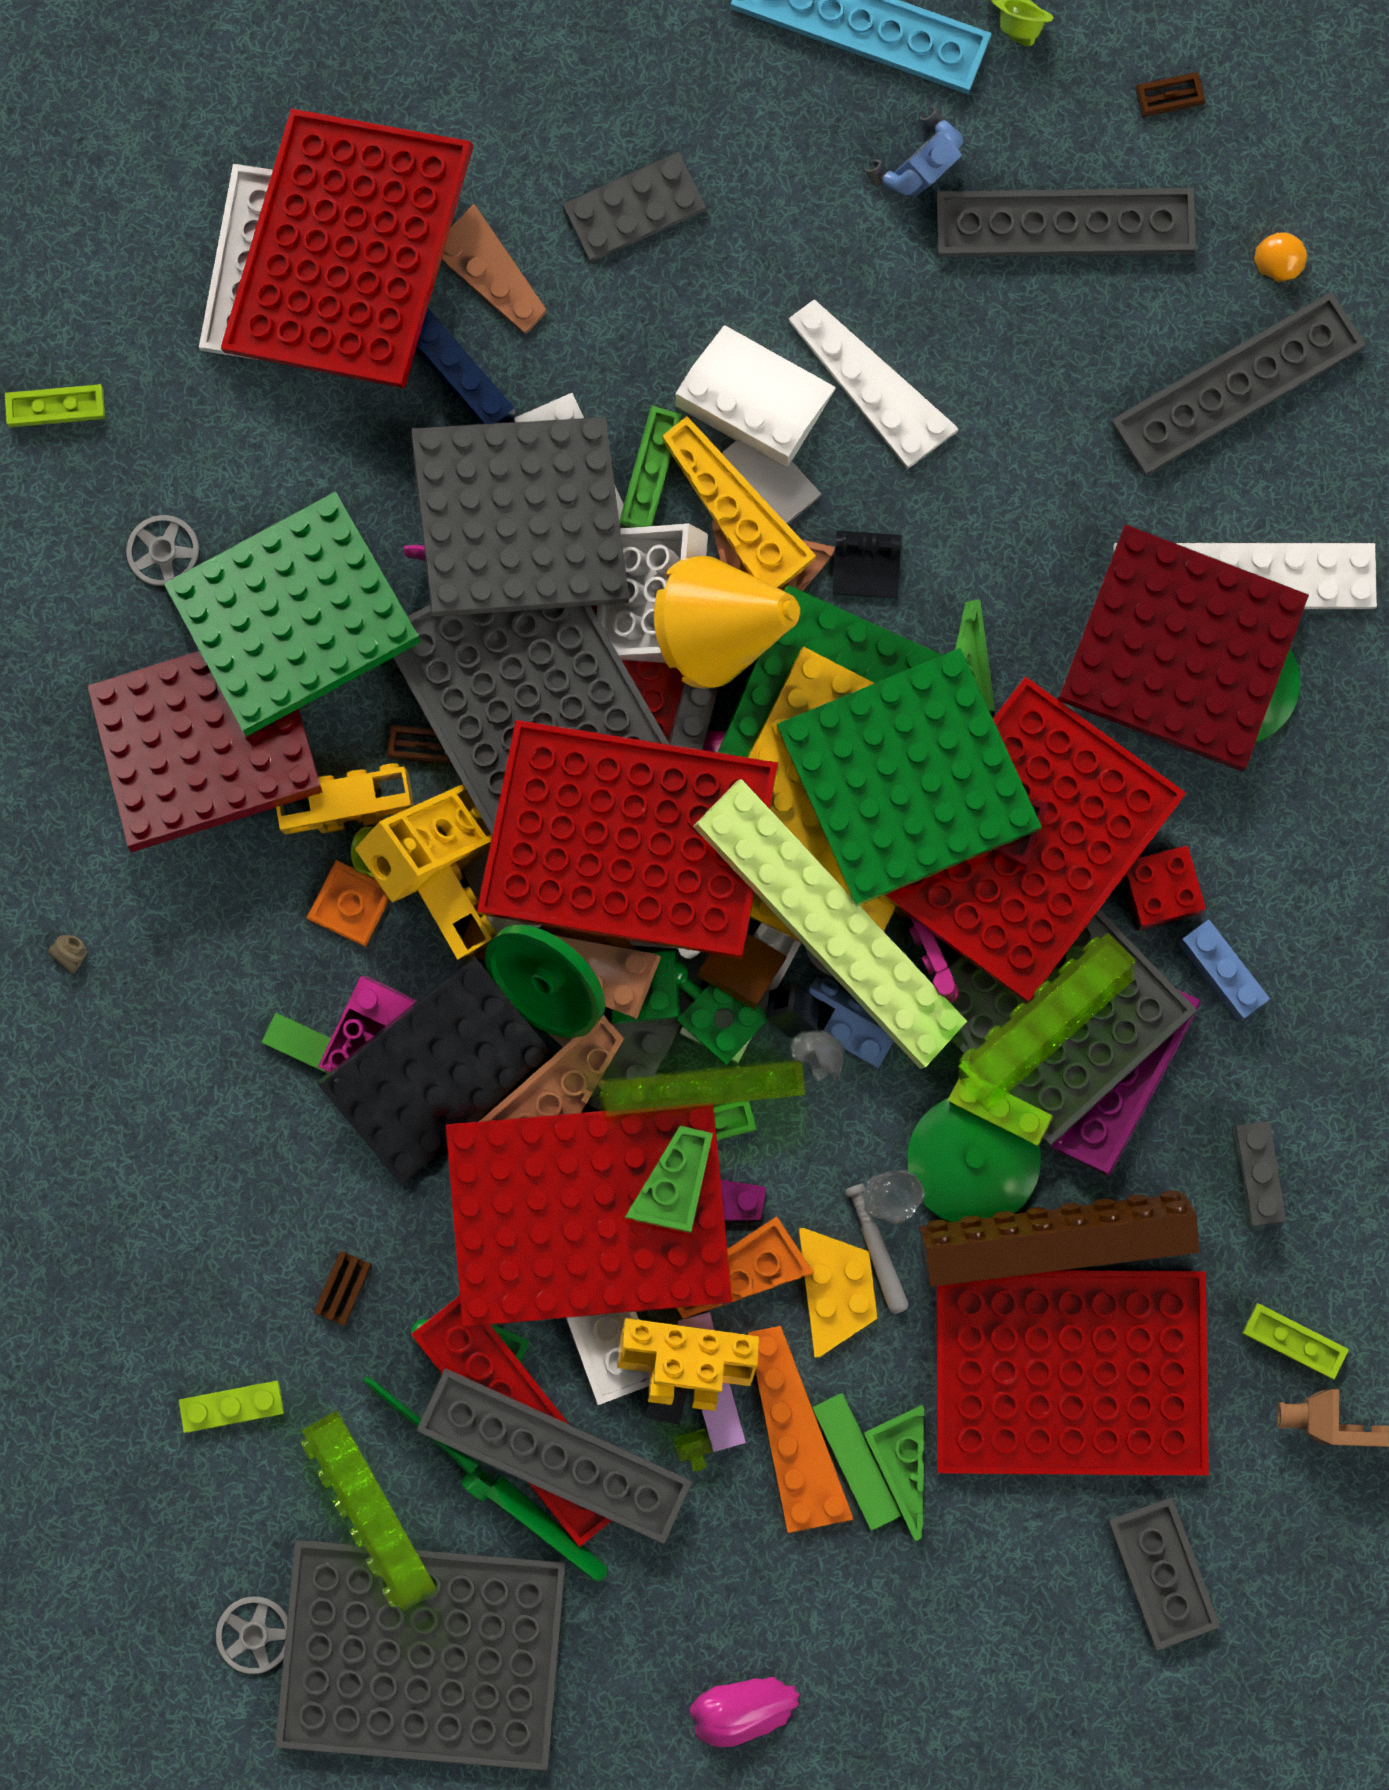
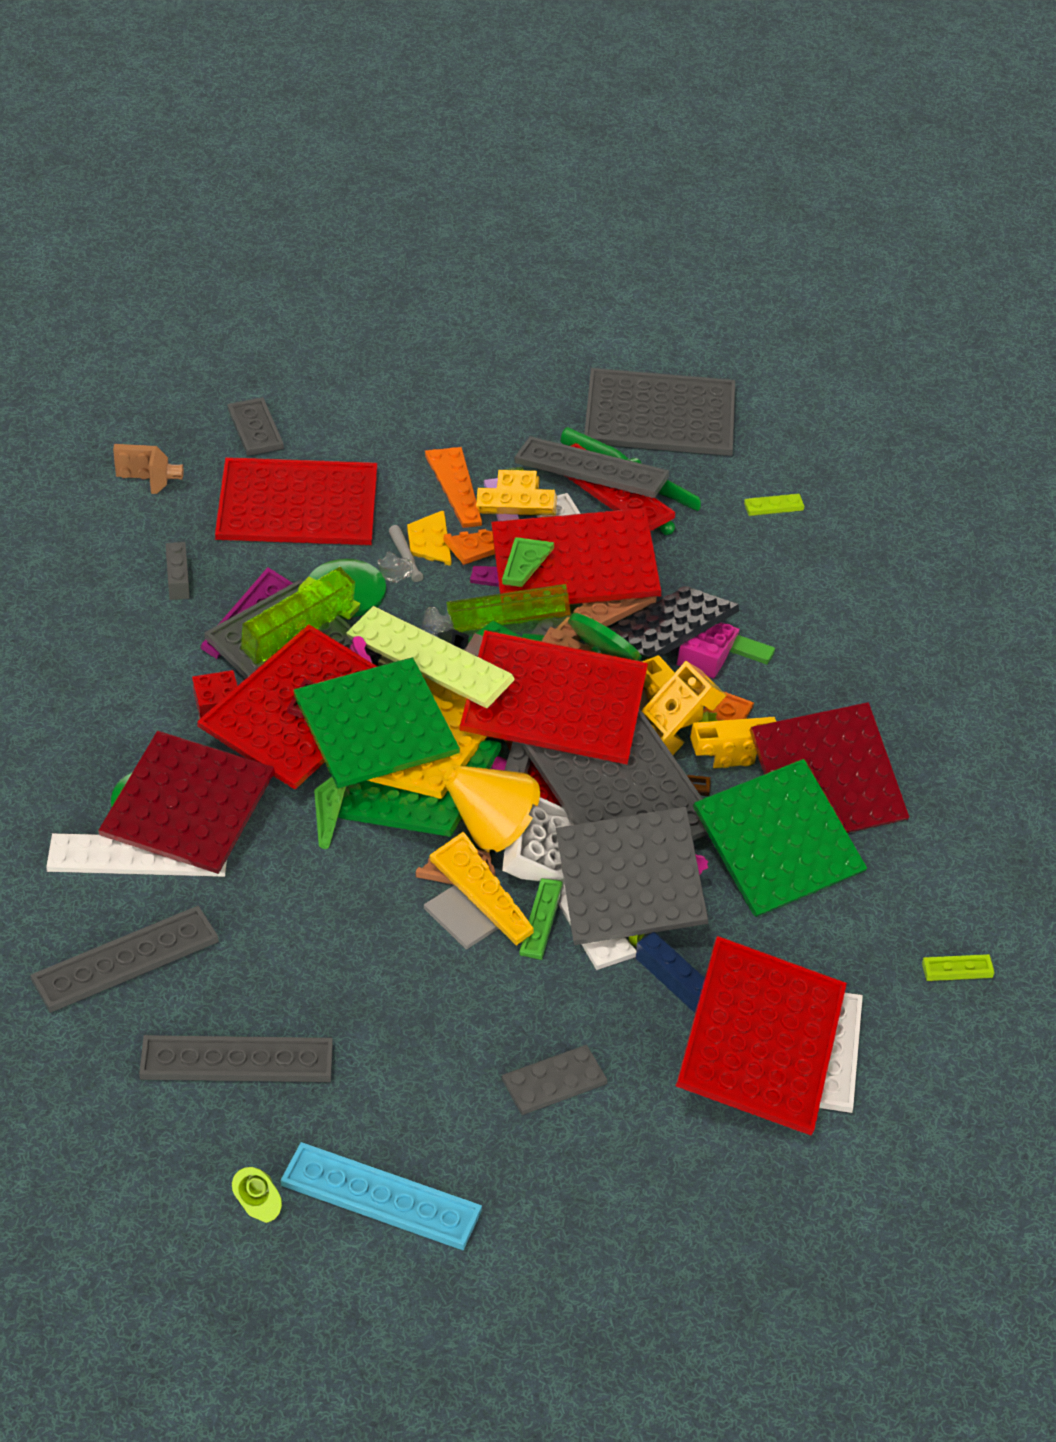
camera: 175 degrees right, 35 degrees down
(68, 952) = (898, 691): dark tan plate -> none
(161, 549) = (870, 889): light grey wheel -> none
(252, 1635) = (752, 423): light grey wheel -> none
(342, 1288) = (719, 539): reddish brown tile -> none
(369, 1511) = (693, 454): clear neon green brick -> none
(488, 269) = (655, 1039): nougat wing -> none
(742, 1711) = (489, 384): dark pink hair -> none
(753, 395) = (468, 957): white slope -> none
(856, 1461) = (422, 473): bright green tile -> none
(867, 564) = (394, 868): black hinge -> none
(888, 402) = (374, 956): white wing -> none
(899, 1454) = (397, 471): bright green wing -> none
(926, 163) = (335, 1091): medium blue torso -> none
(1059, 1238) = (300, 540): reddish brown brick -> none
(1170, 106) = (147, 1147): reddish brown tile -> none
(1223, 971) = (182, 655): medium blue brick -> none
(1281, 256) = (81, 1035): light orange hair -> none
(1295, 1341) = (167, 508): lime plate -> none

